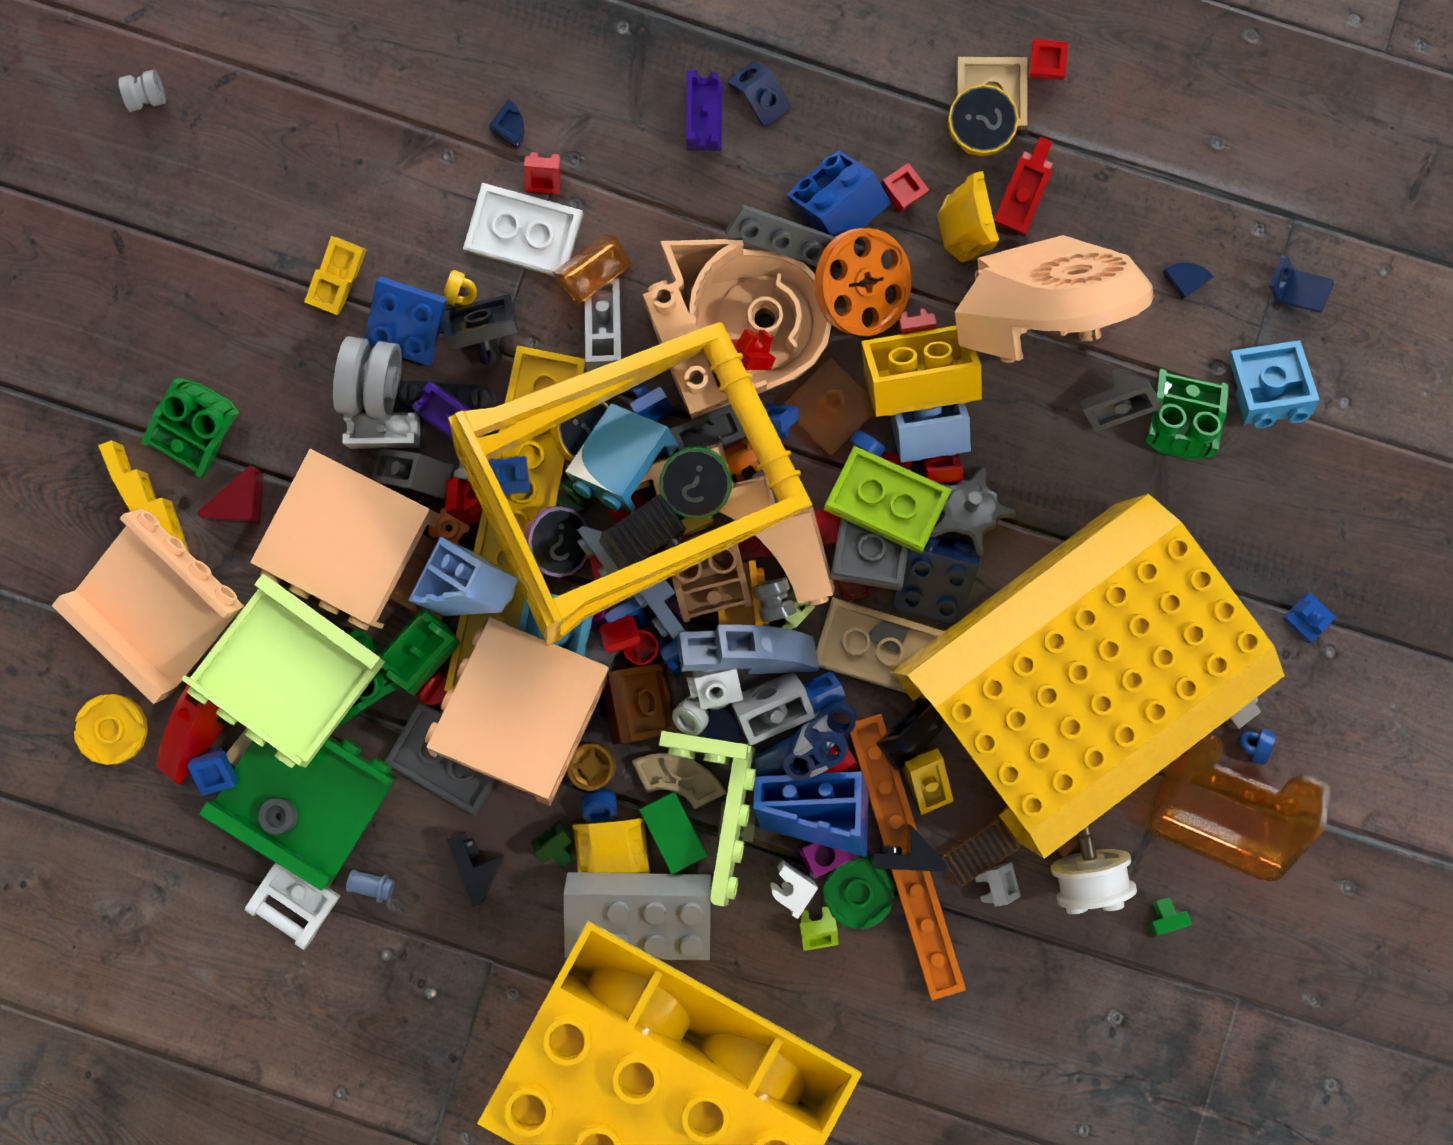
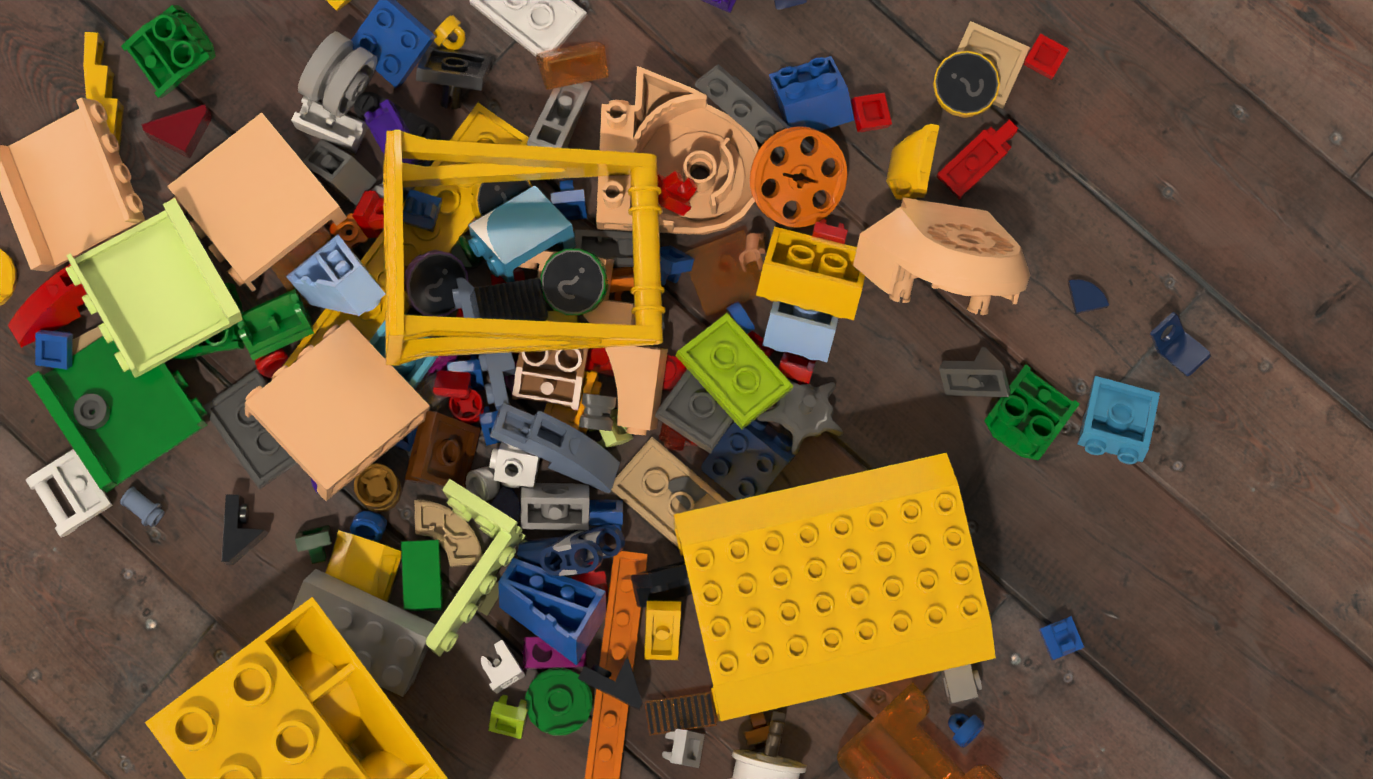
camera: 25 degrees right, 5 degrees down
(853, 373) = (754, 248): none -> nougat arm

